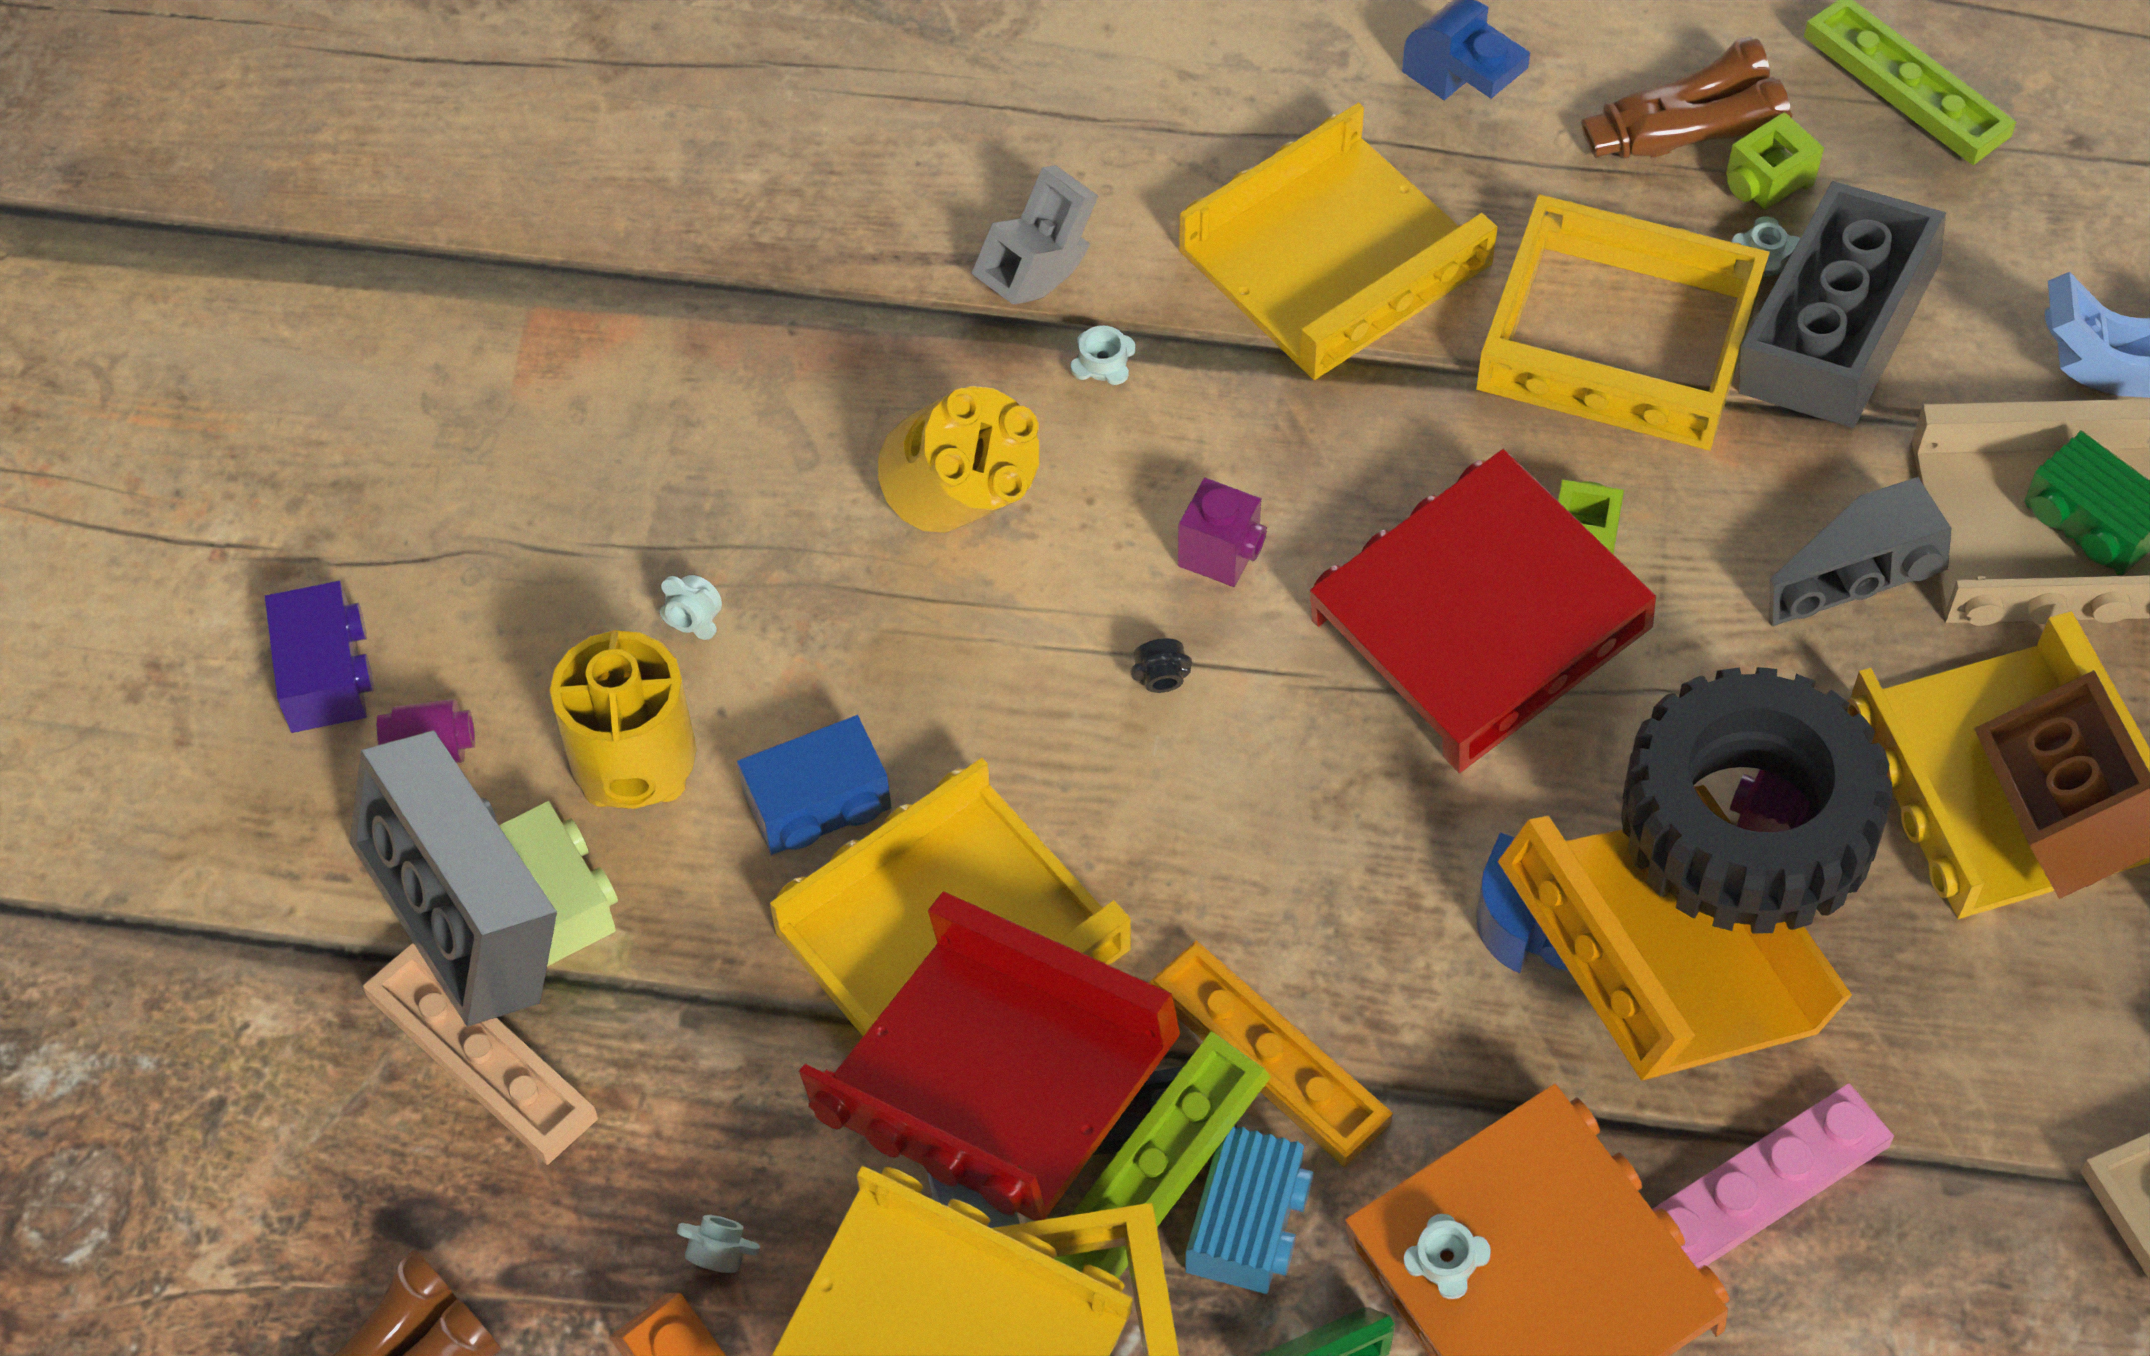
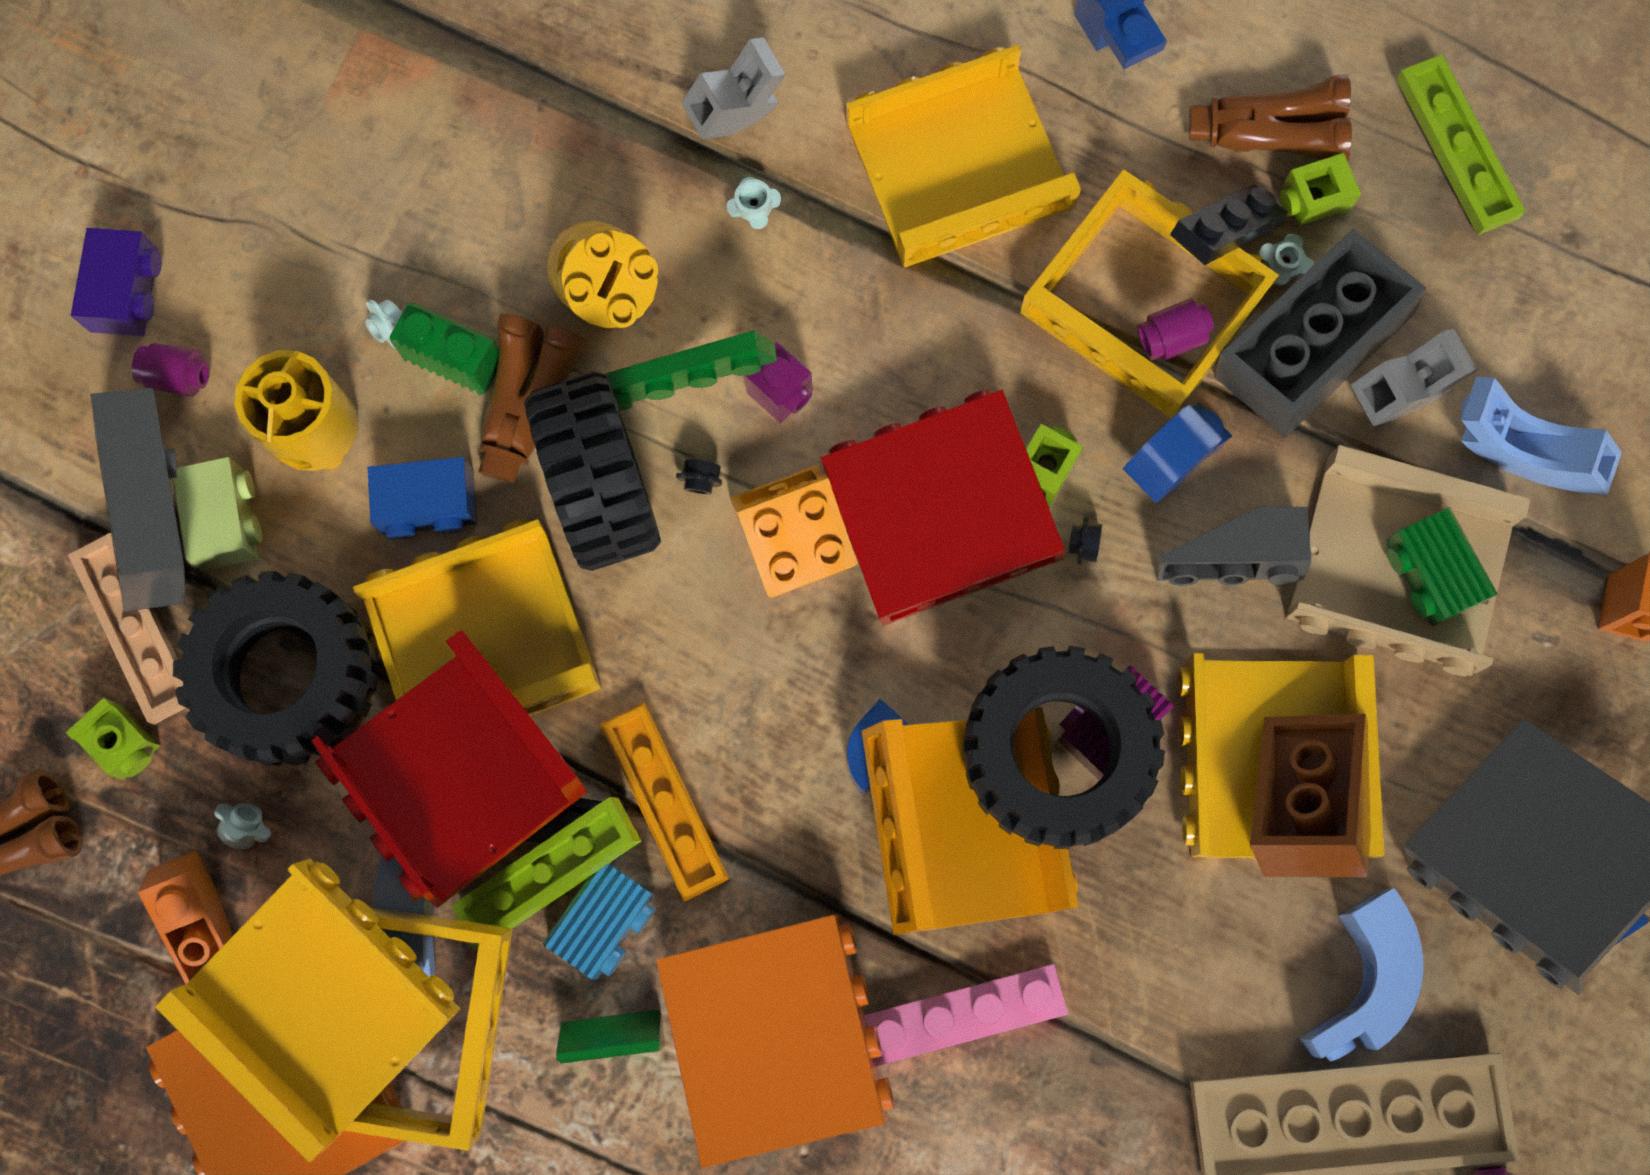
camera: 20 degrees right, 20 degrees up
(510, 1216) = (101, 726): none -> lime brick
(685, 956) = (226, 634): none -> black tyre
(782, 610) = (446, 348): none -> green brick
(900, 668) = (506, 428): none -> dark orange piece
(1044, 662) = (591, 471): none -> black tyre
(1096, 541) = (691, 367): none -> green plate
(1309, 690) = (794, 530): none -> light orange bracket
(1447, 1235) = (694, 1017): light aqua plate -> none
(1672, 601) = (1085, 541): none -> black plate
(1678, 333) = (1175, 329): none -> magenta brick
(1688, 214) = (1229, 223): none -> black plate
(1734, 469) = (1176, 450): none -> blue brick
(1978, 323) = (1414, 379): none -> light grey brick

